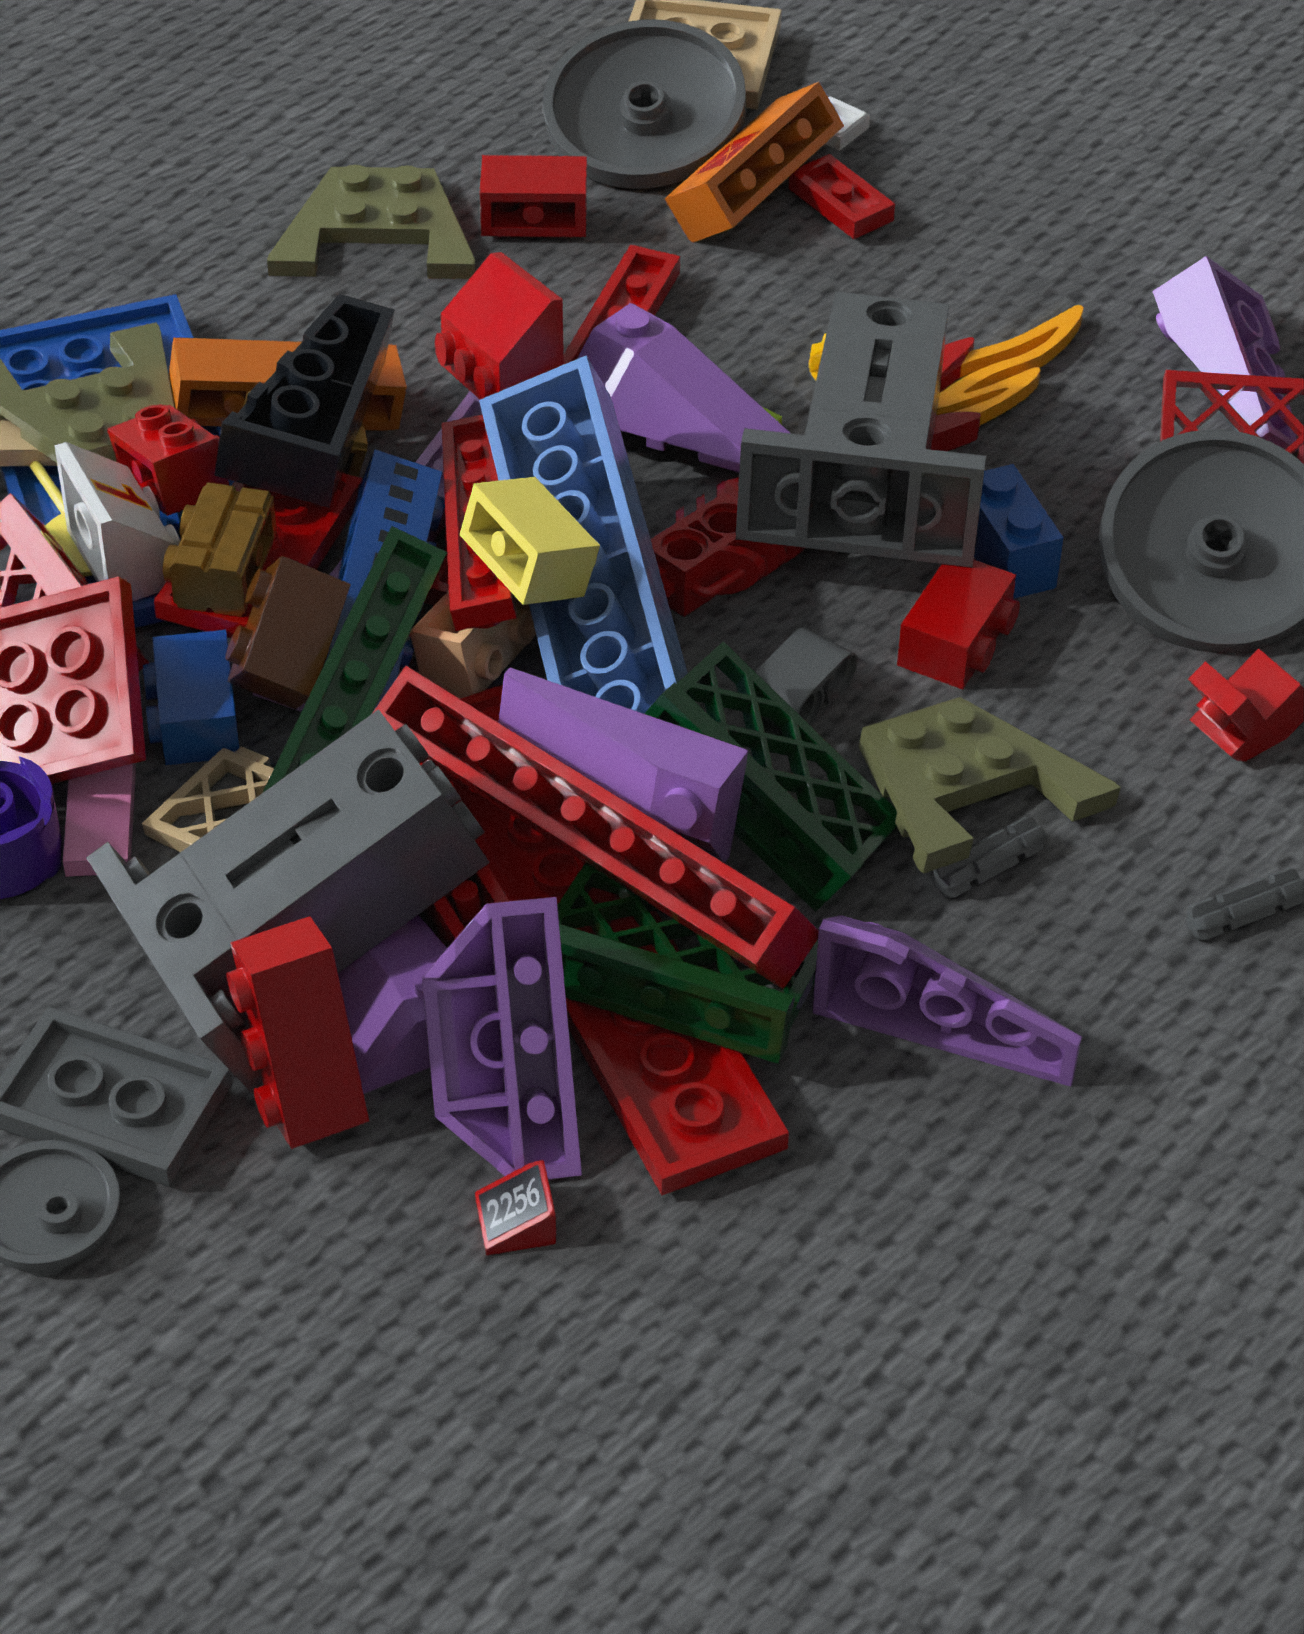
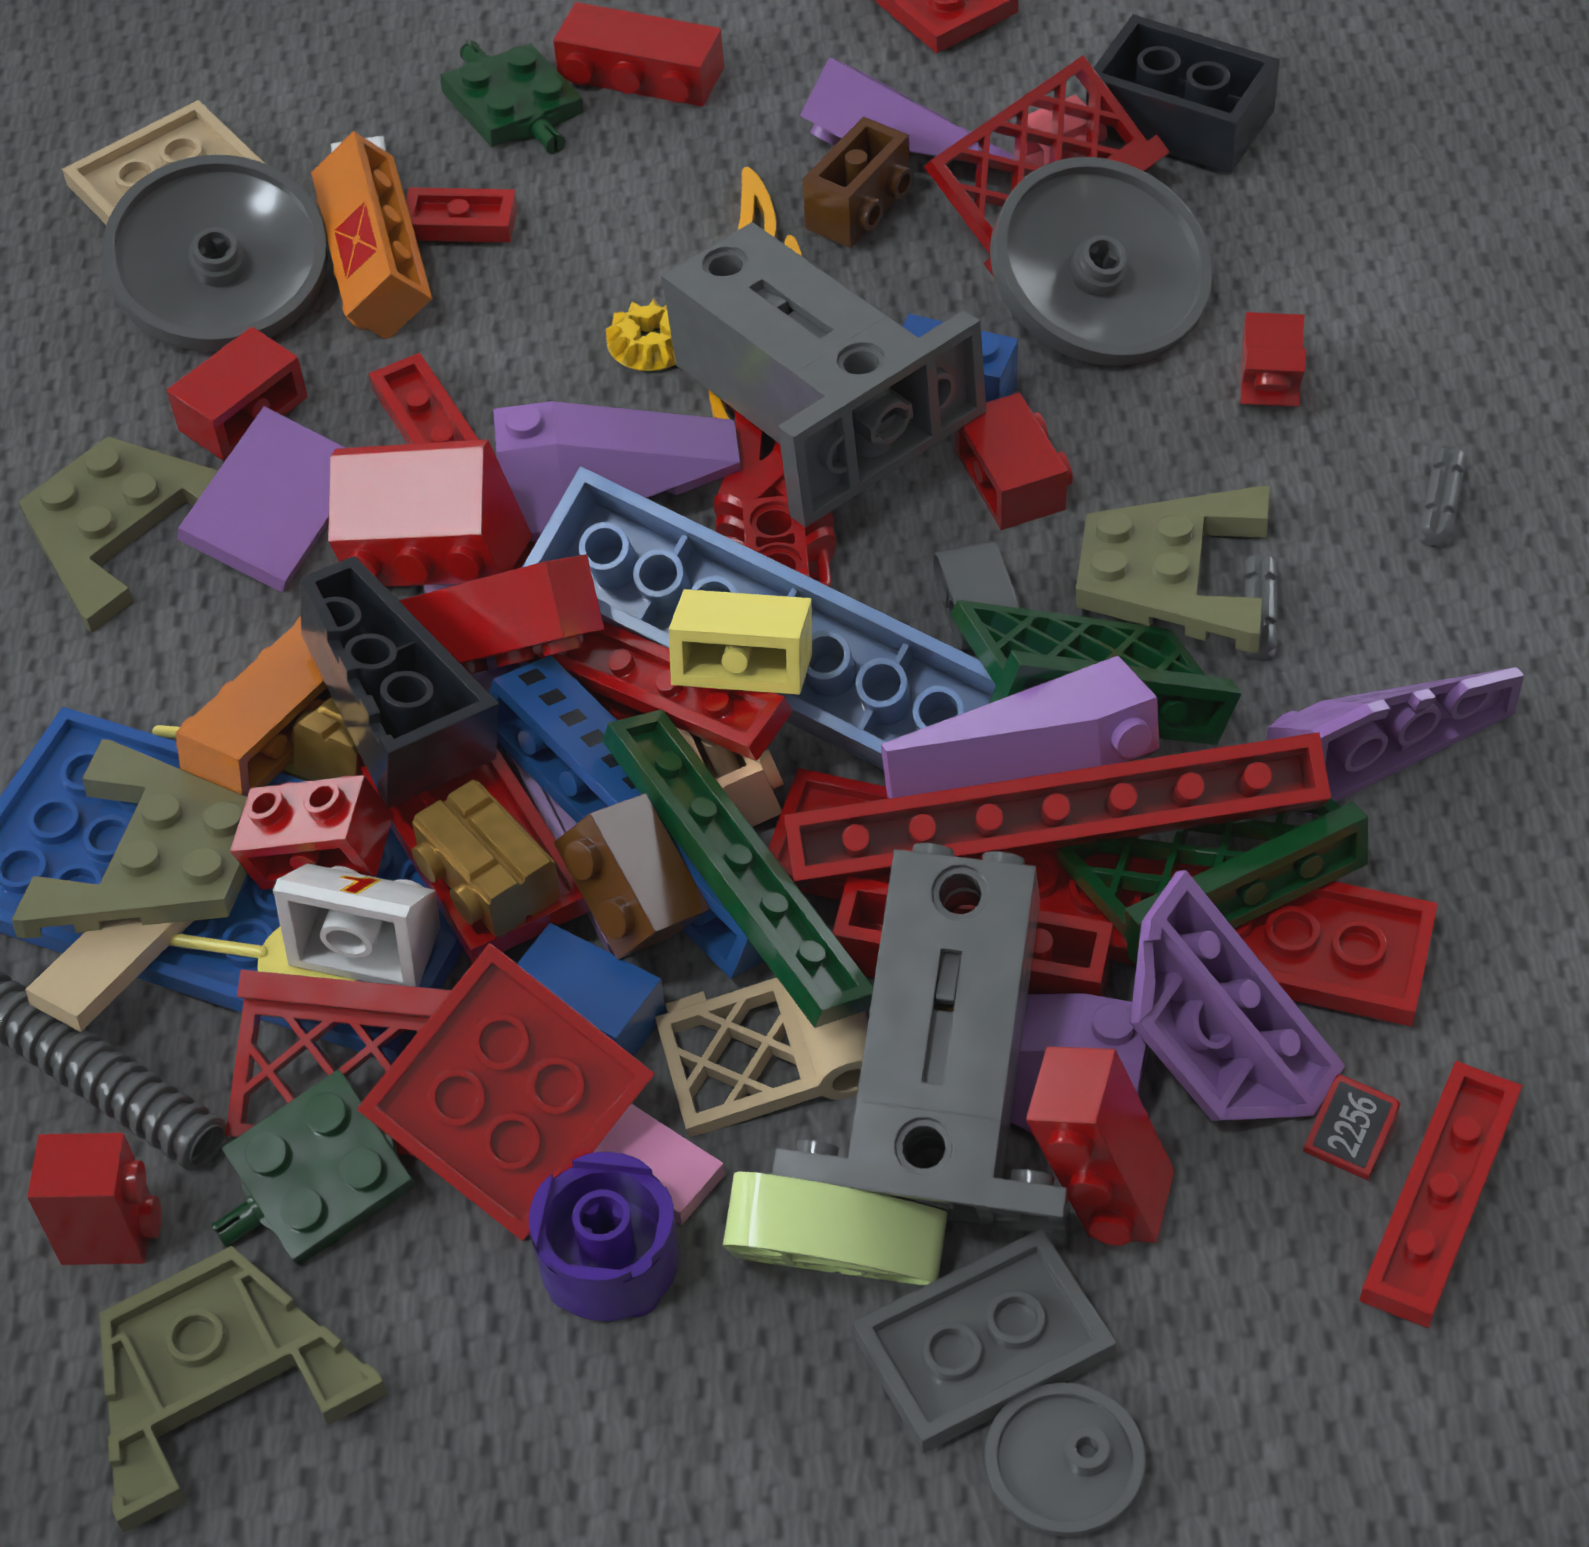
camera: 45 degrees left, 5 degrees up
(97, 938) = (833, 1229): none -> yellowish green beam
(430, 418) = (512, 613): none -> red brick
(433, 265) = (265, 501): none -> medium lavender tile
(506, 1300) = (1440, 1194): none -> red plate
(995, 149) = (512, 95): none -> dark green plate
(1116, 181) = (639, 54): none -> red brick
(1125, 361) = (857, 182): none -> reddish brown brick

